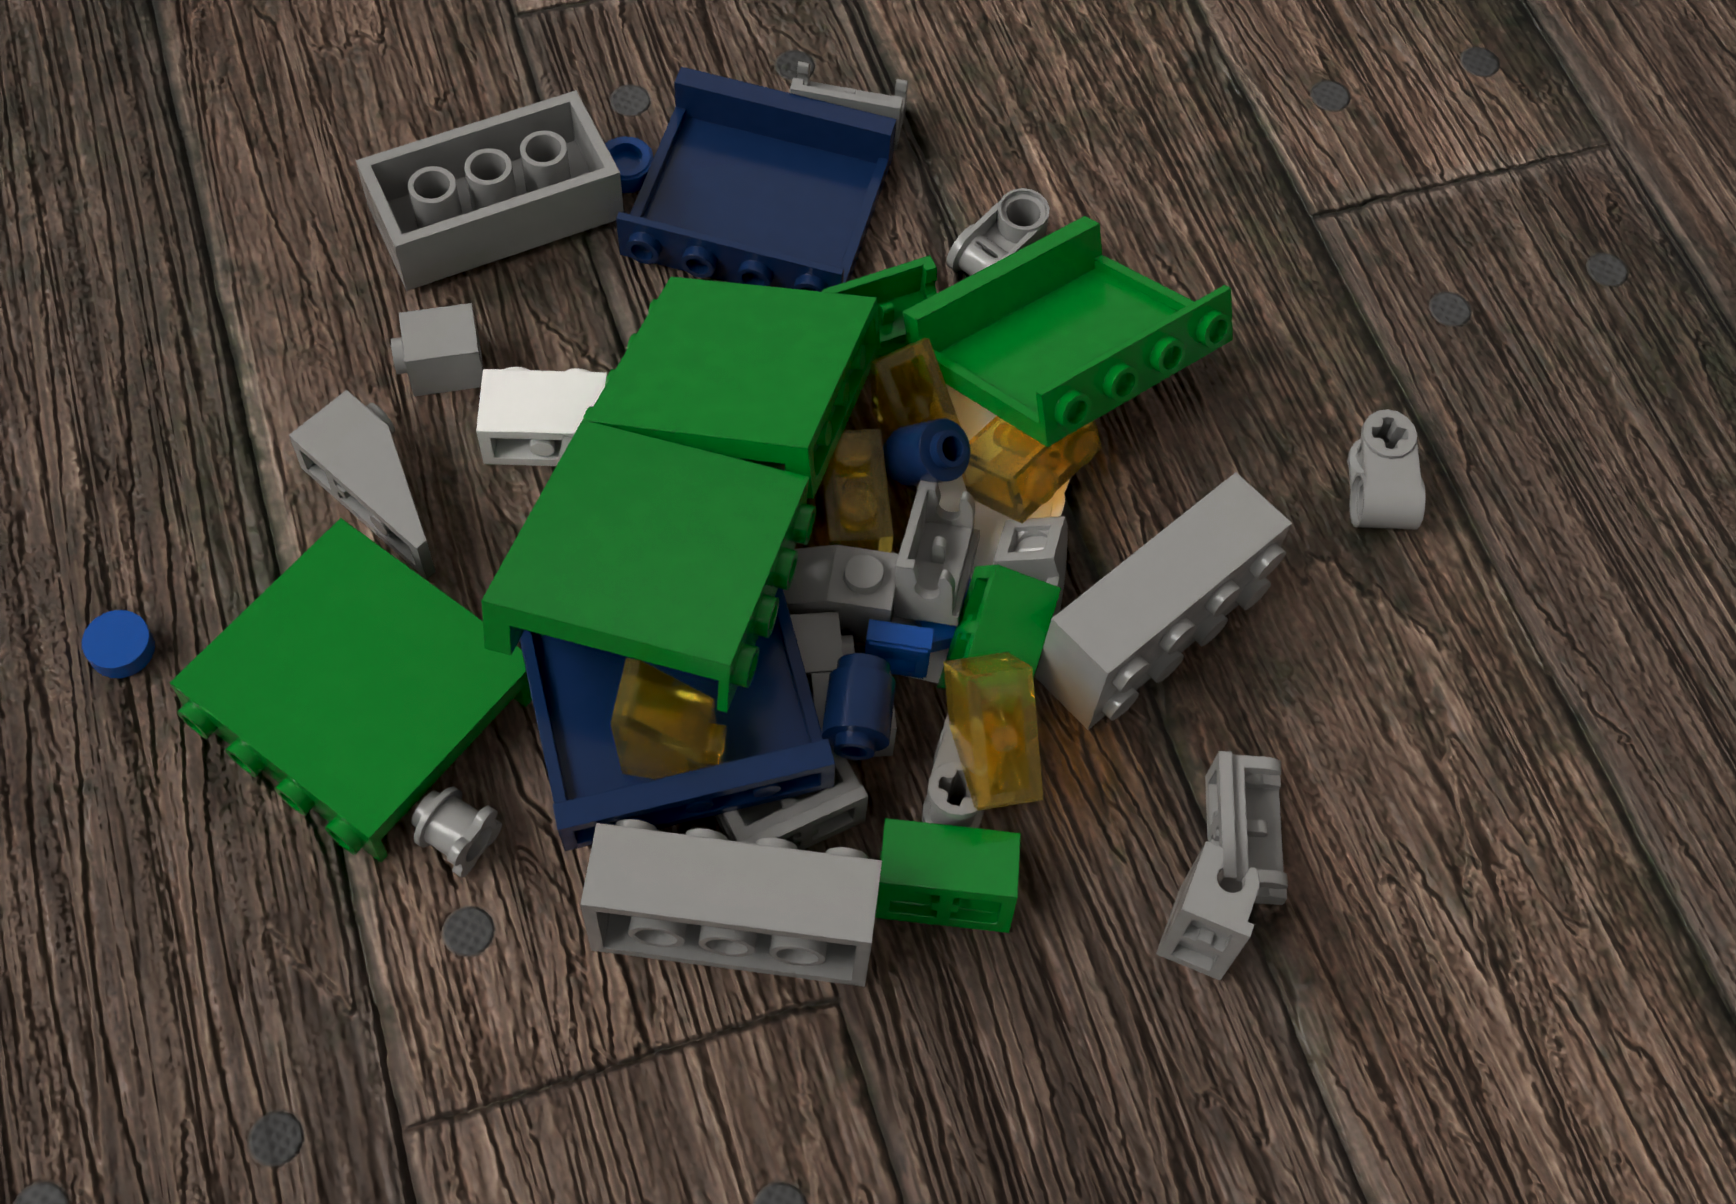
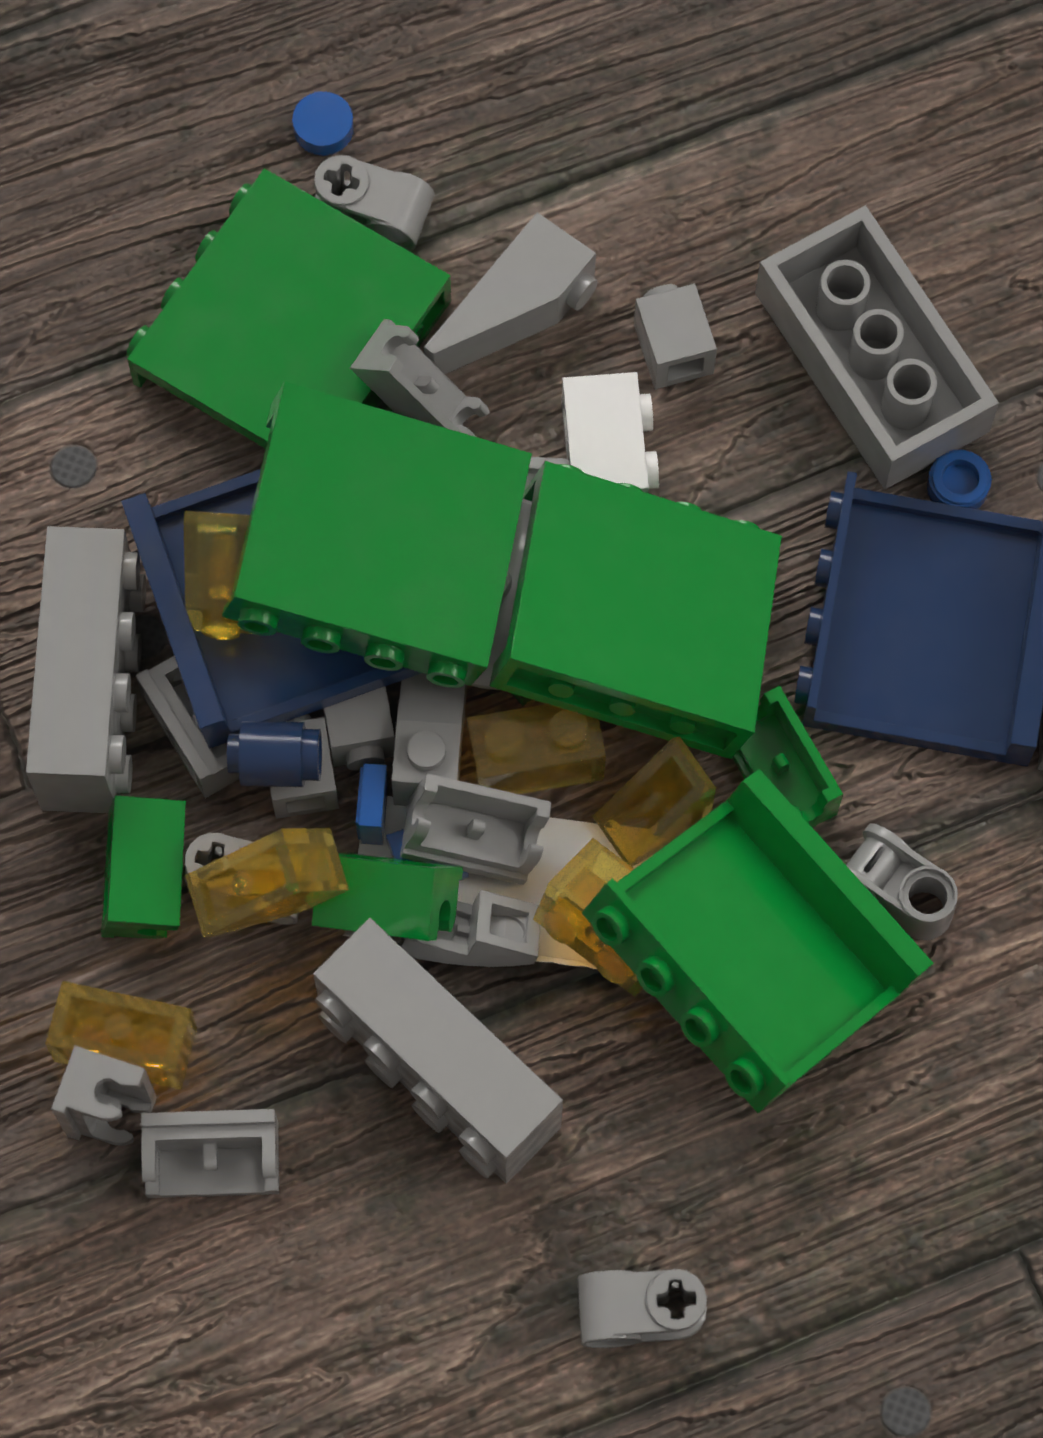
camera: 90 degrees right, 10 degrees up
(224, 588) = (376, 197): none -> light grey piece
(455, 828) = (156, 433): light grey brick -> none
(458, 564) = (411, 381): none -> light grey hinge
(927, 452) = (583, 806): dark blue brick -> none
(1136, 896) = (125, 1029): none -> clear yellow brick

